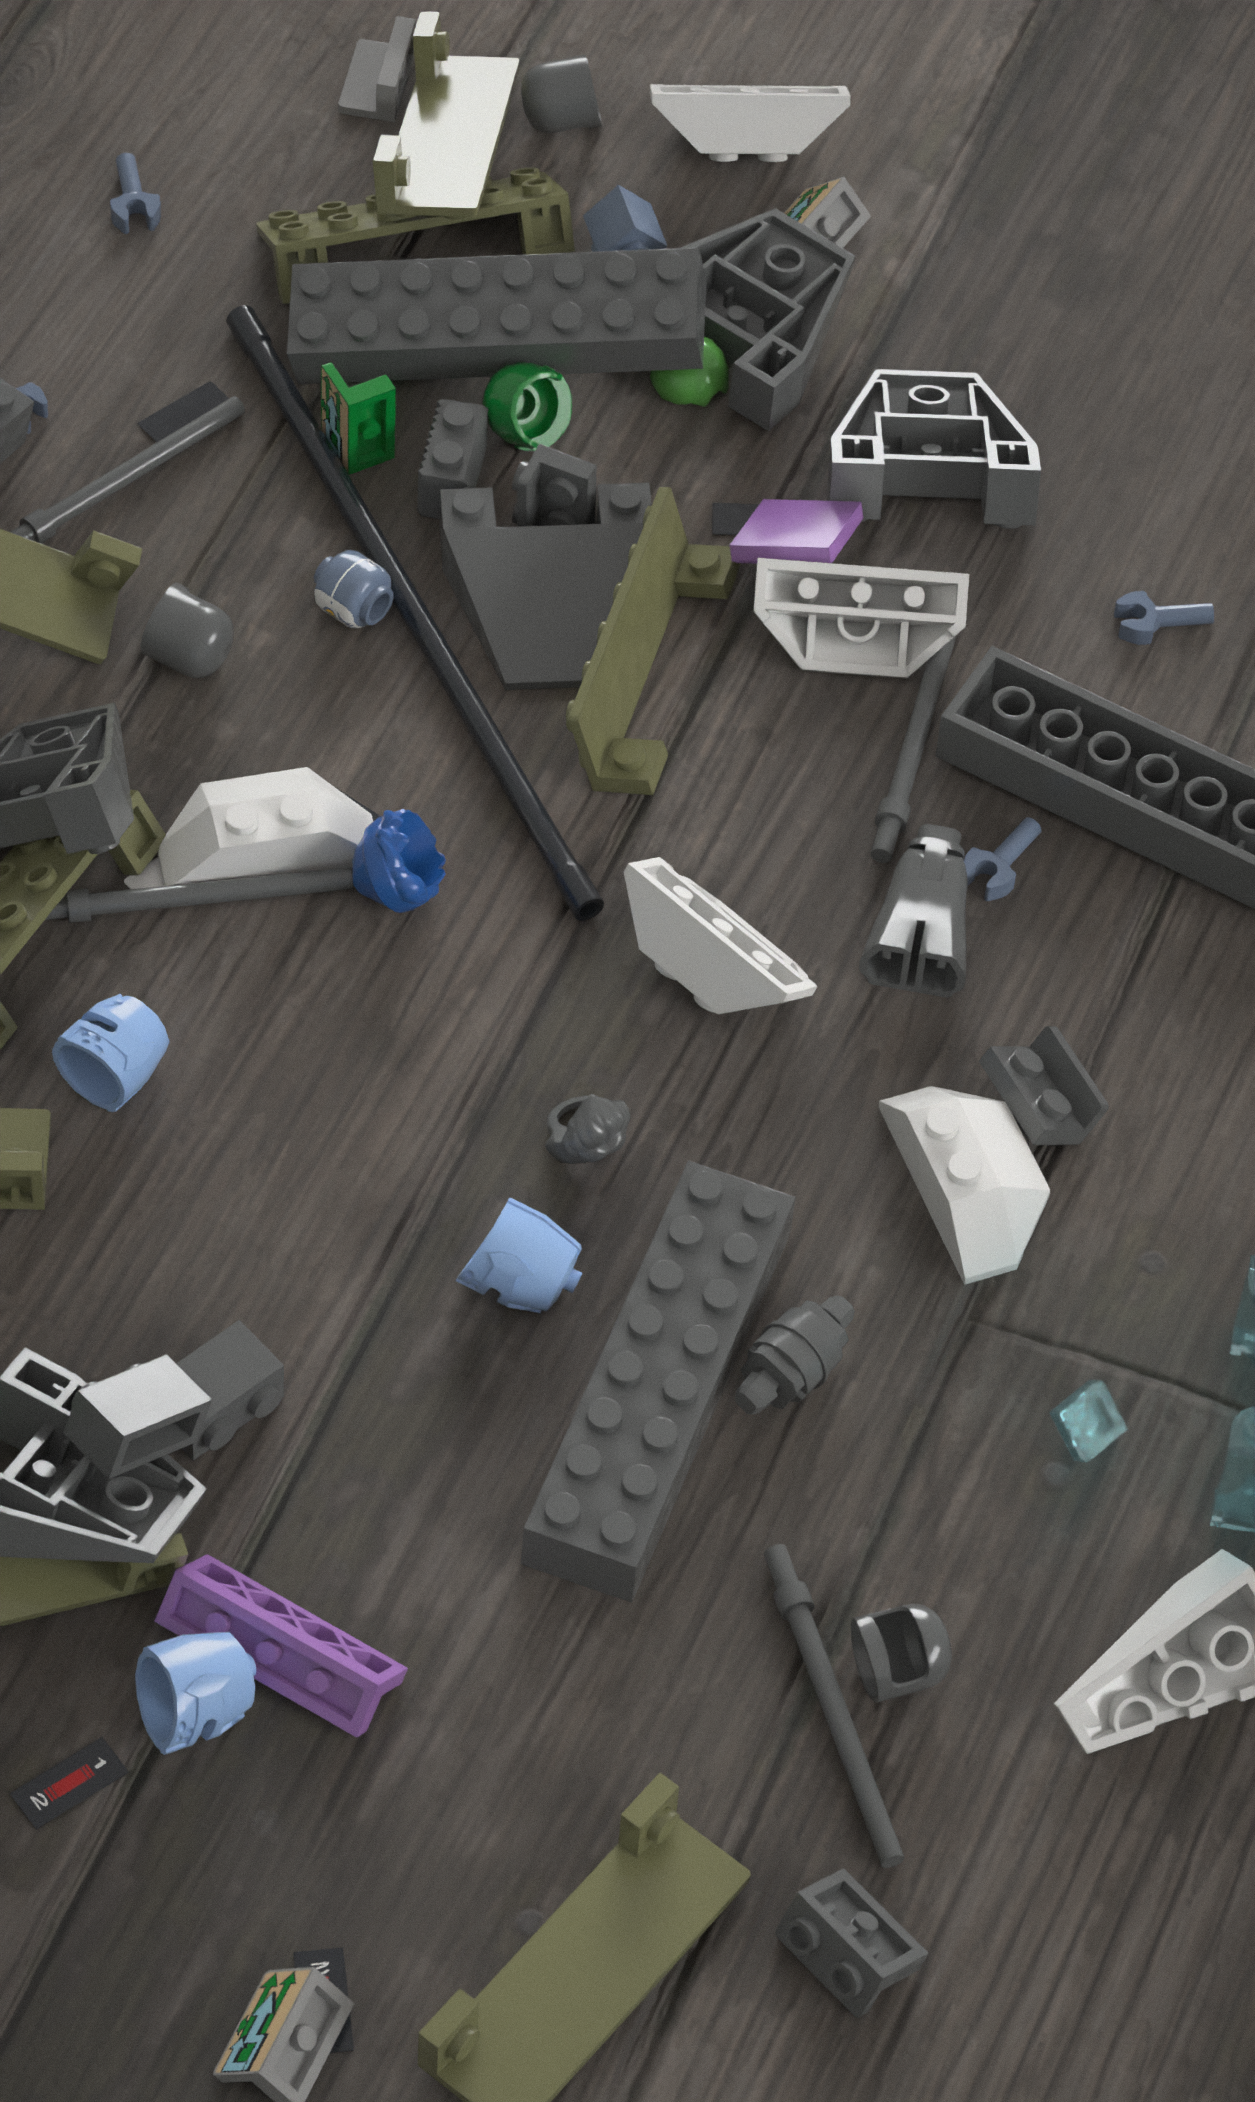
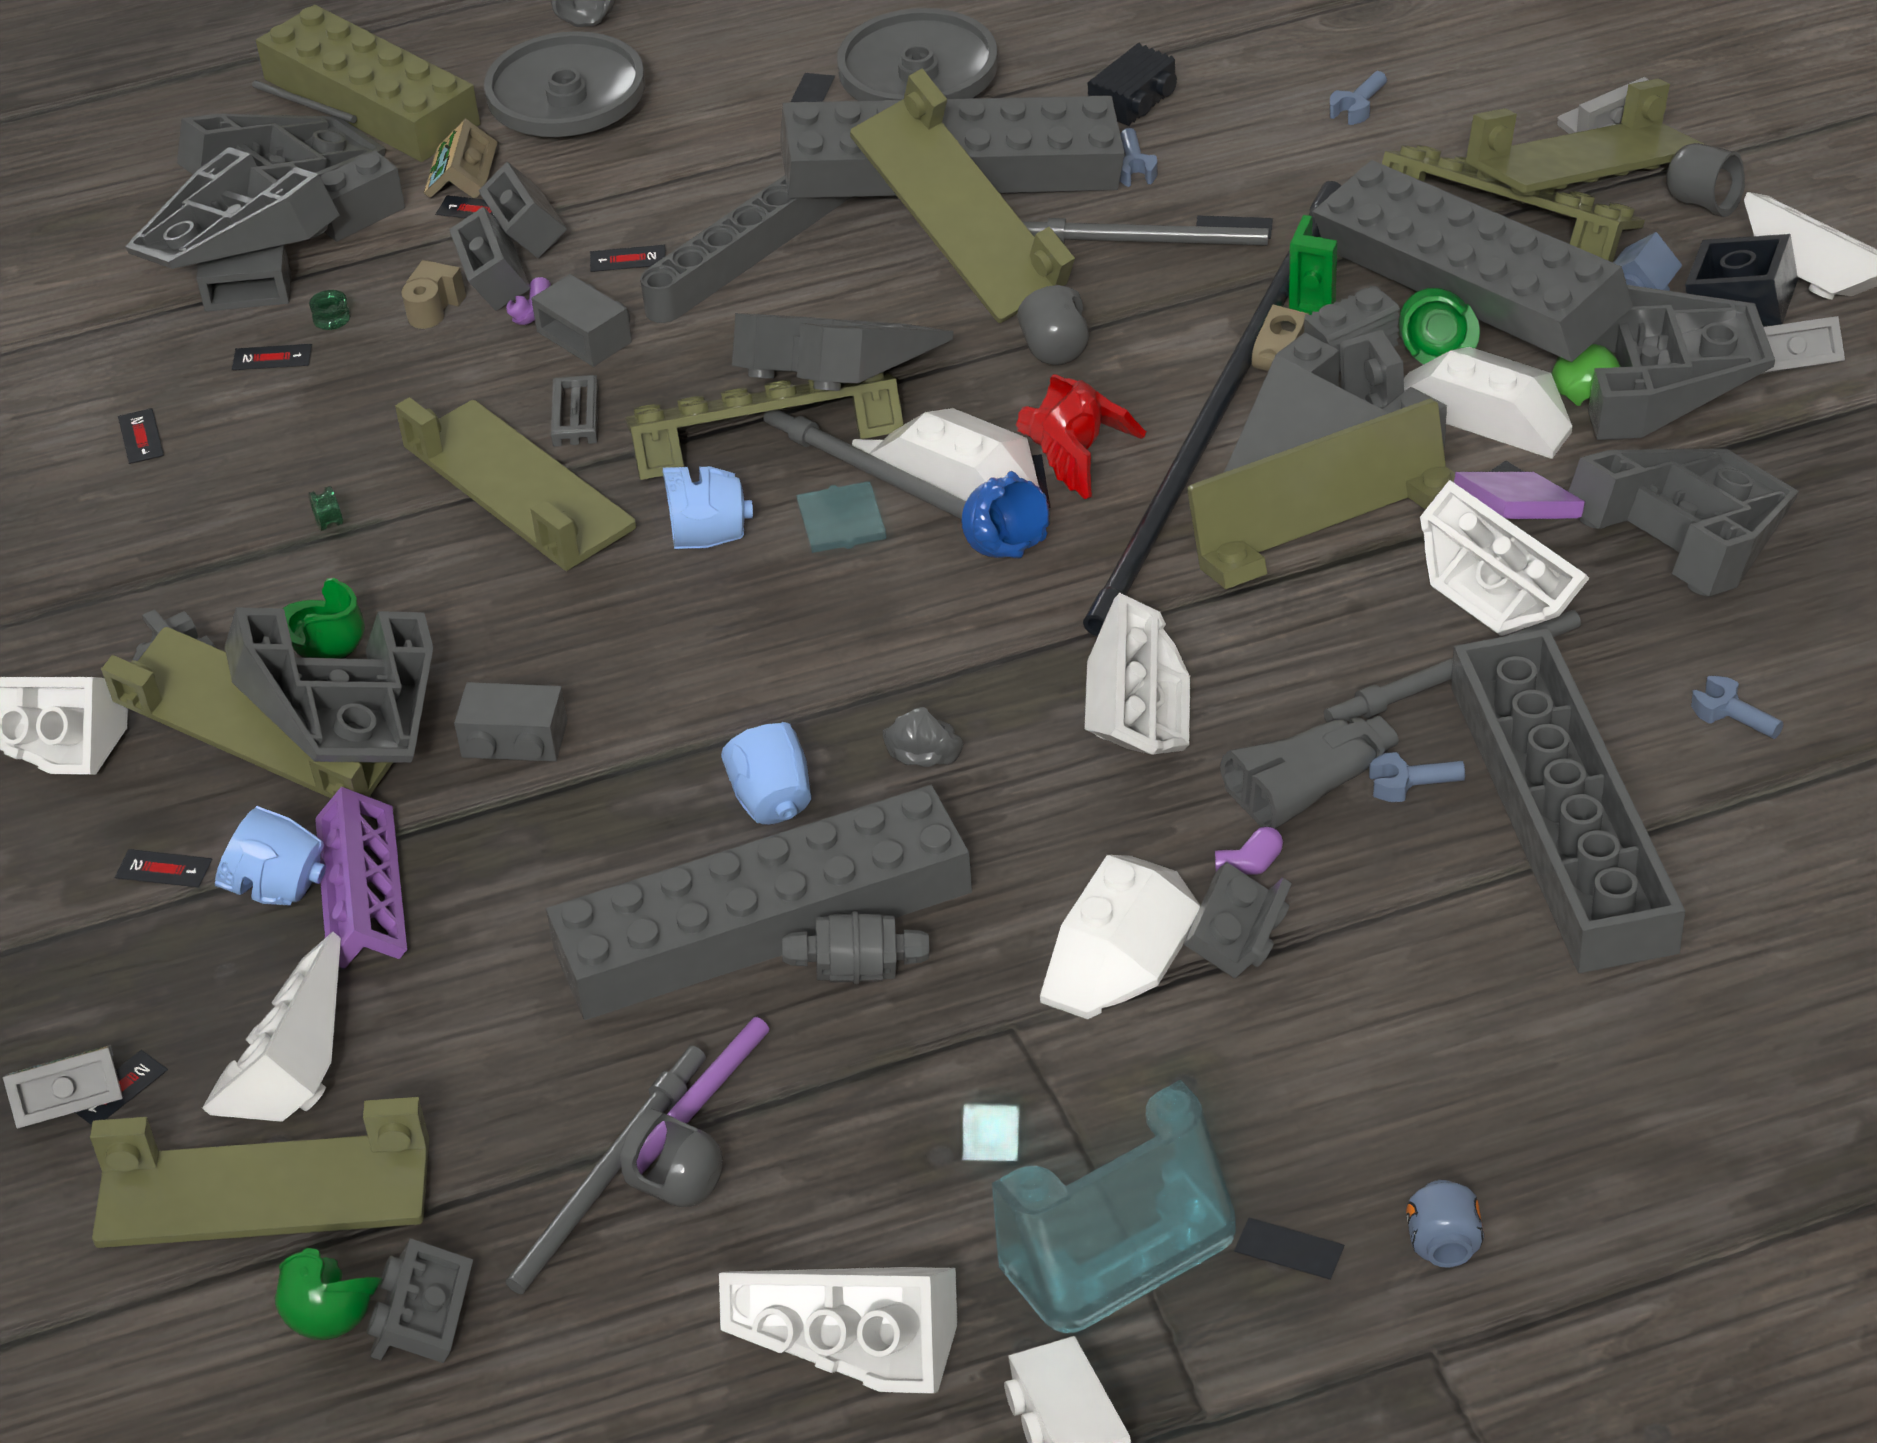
camera: 55 degrees right, 10 degrees down
(137, 1416) = (415, 681): dark grey piece -> none
(220, 967) = (841, 517): none -> clear light blue piece
(333, 725) = (1069, 425): none -> red helmet
(353, 589) = (1188, 362): sand blue head -> none
(403, 513) = (1272, 336): none -> dark tan leg
(441, 1838) = (288, 1047): none -> white wedge
(650, 441) = (1496, 399): none -> white wedge
(725, 182) = (1748, 271): none -> black brick
(786, 2004) = (316, 1300): none -> green helmet
(818, 1585) = (704, 1088): none -> medium lavender bar
(977, 1026) = (1256, 853): none -> medium lavender arm

